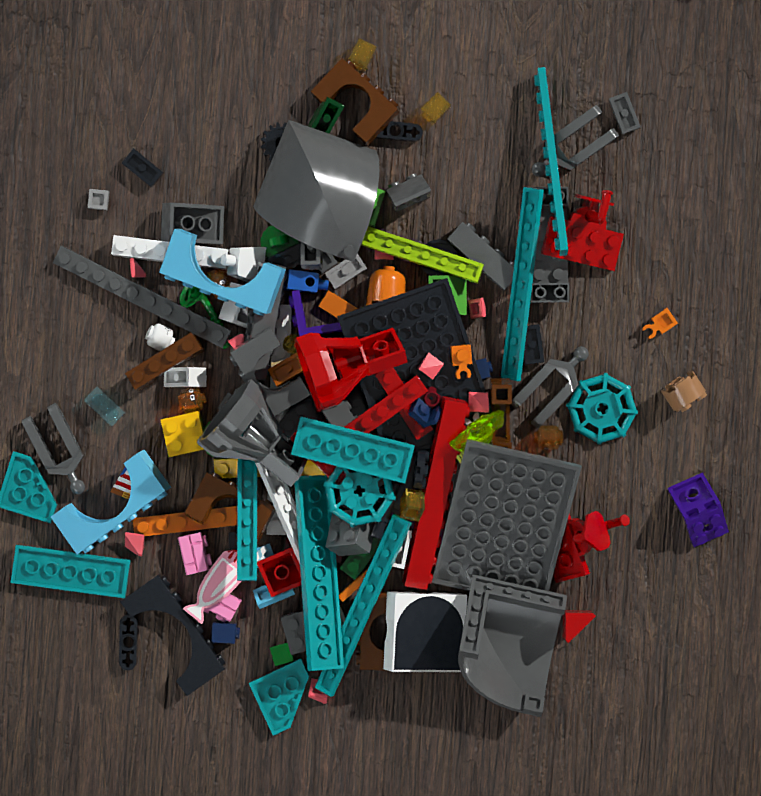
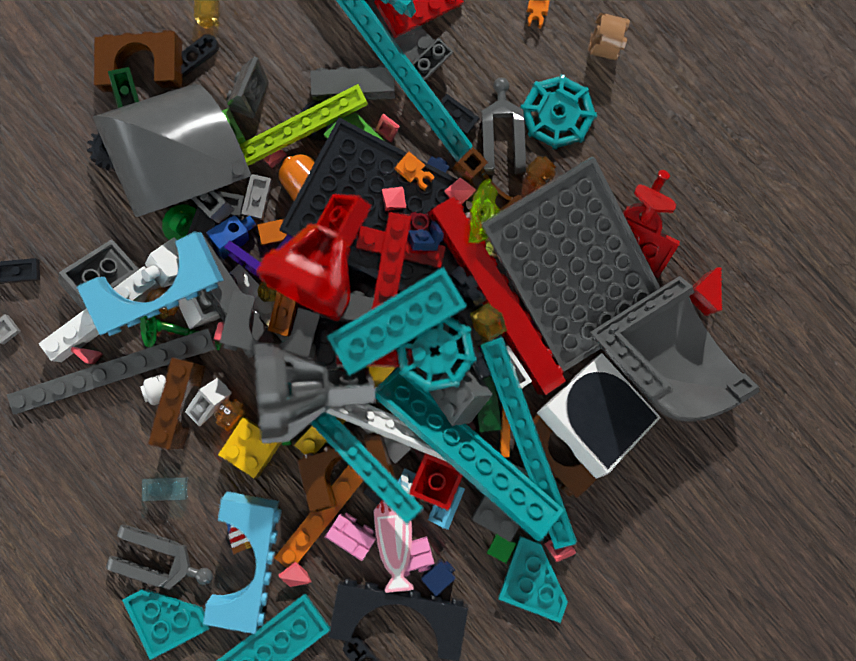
camera: 50 degrees left, 5 degrees down
(362, 54) = (110, 20): clear yellow brick -> none
(699, 510) = (716, 111): dark purple bracket -> none

